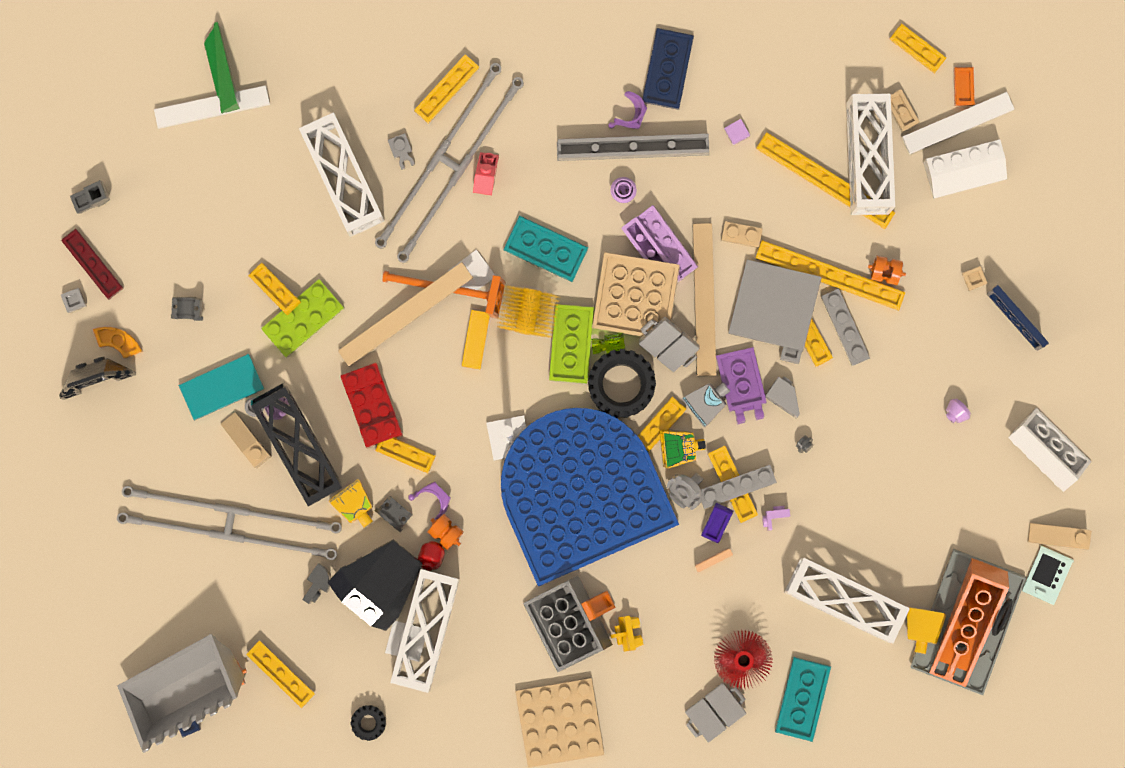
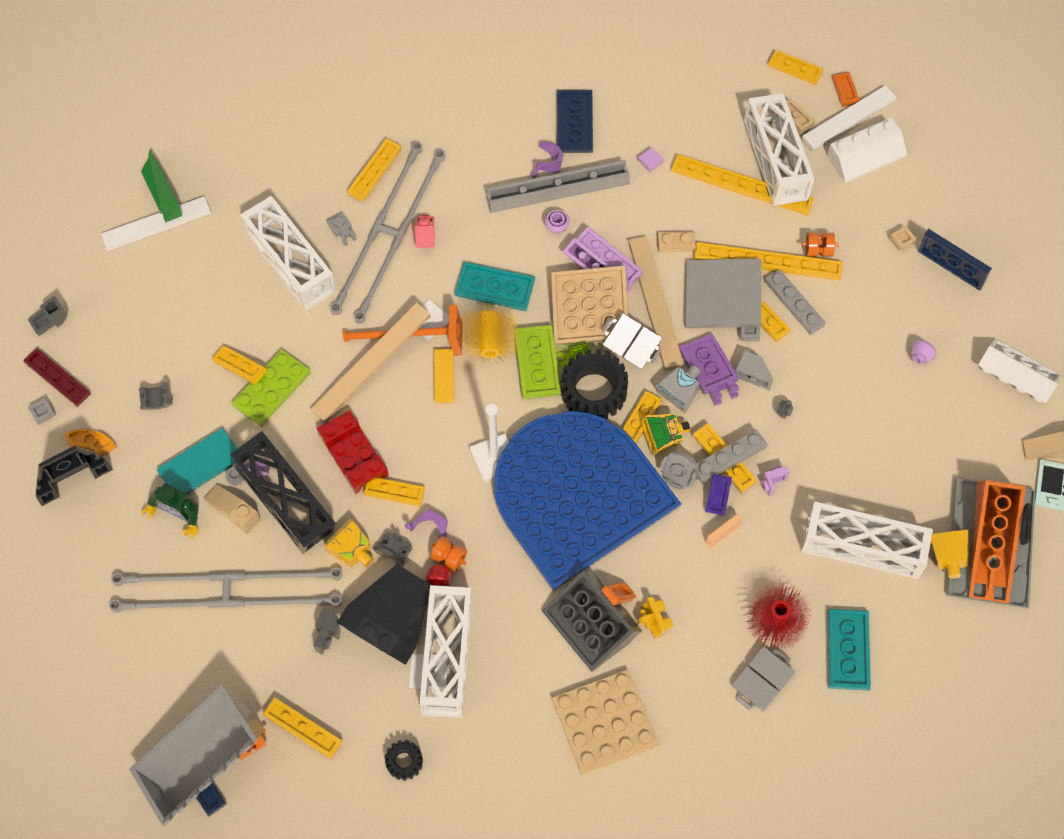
camera: 10 degrees left, 20 degrees down
(191, 430) = (176, 503): none -> dark green torso

